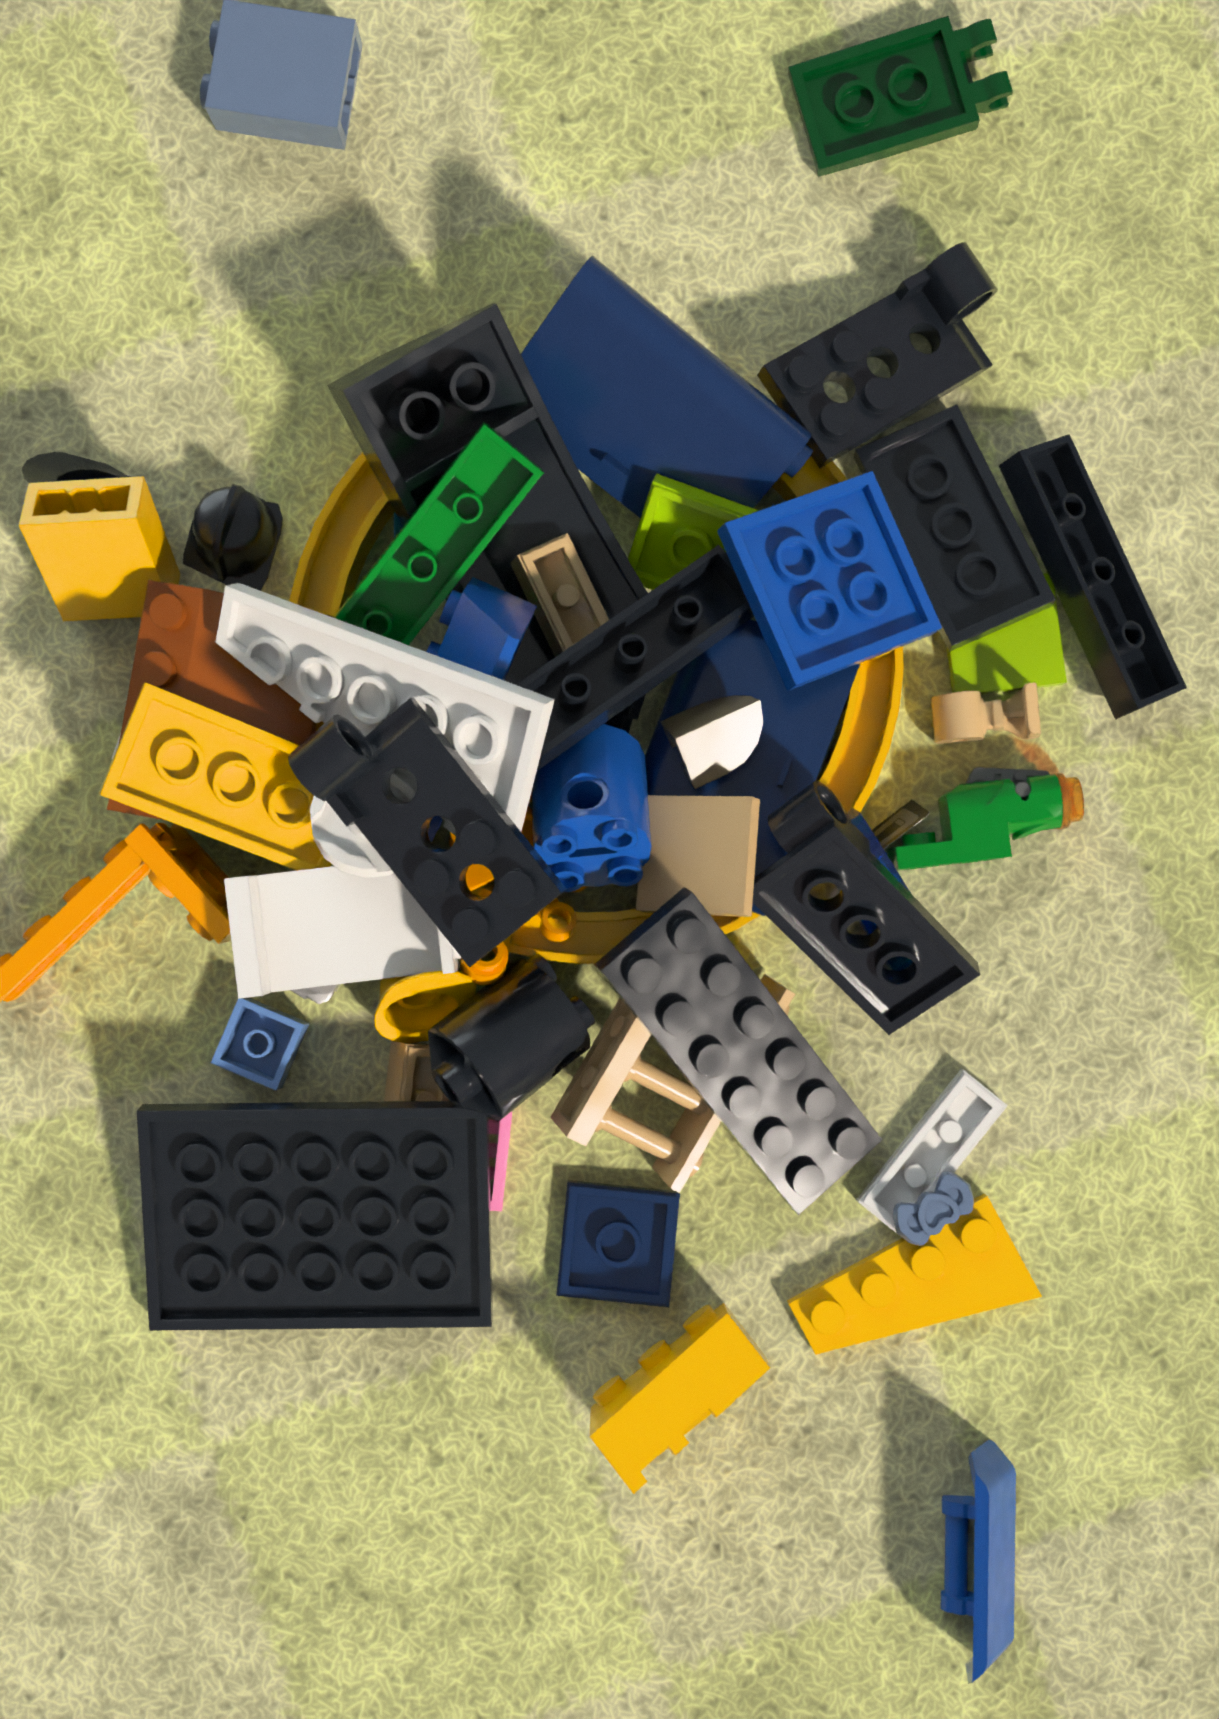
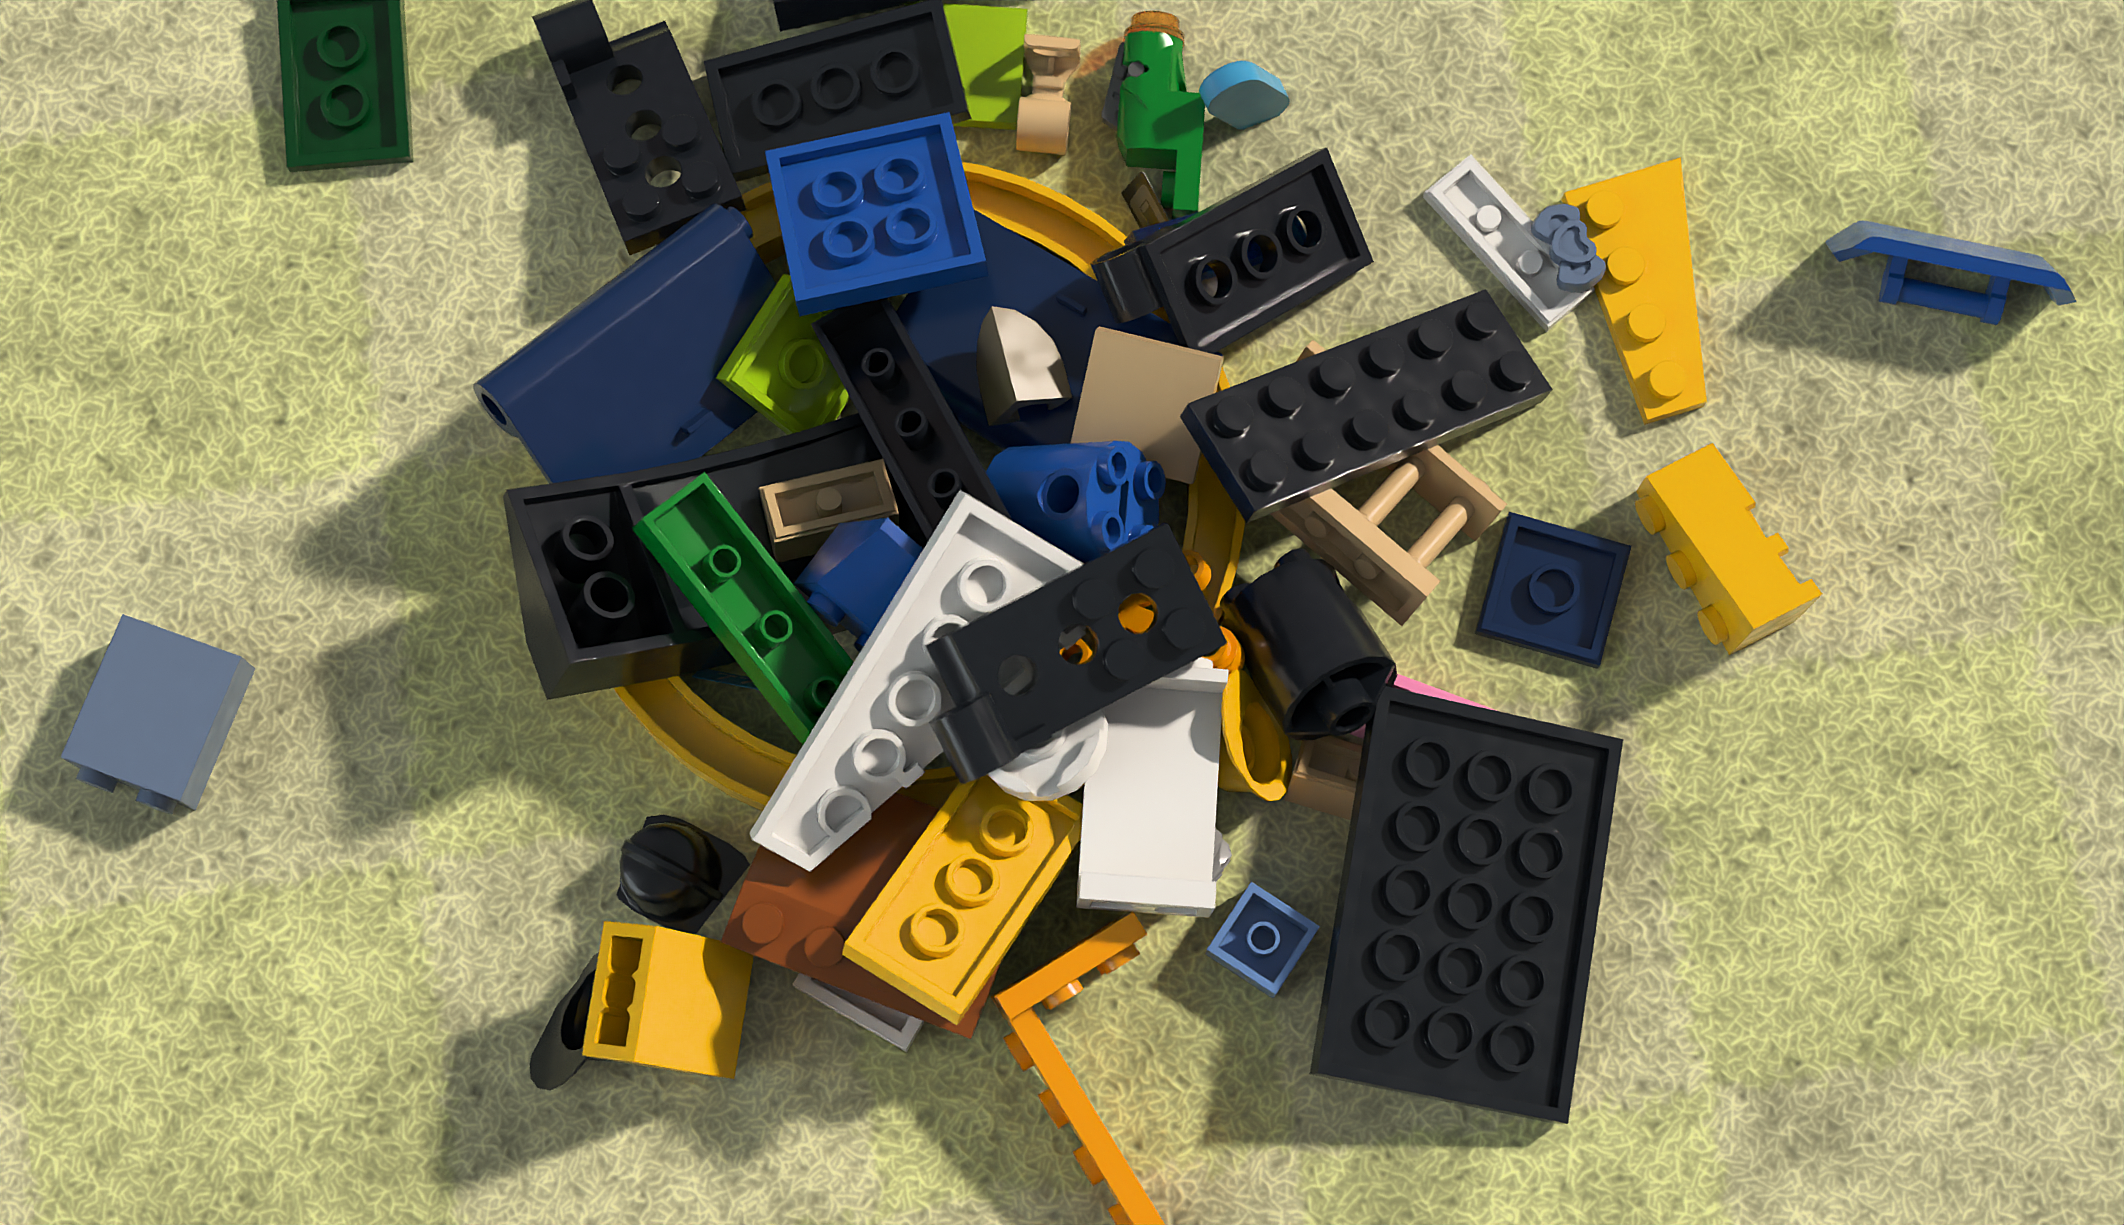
camera: 80 degrees left, 10 degrees down
(1018, 890) = (1243, 94): none -> dark azure tile

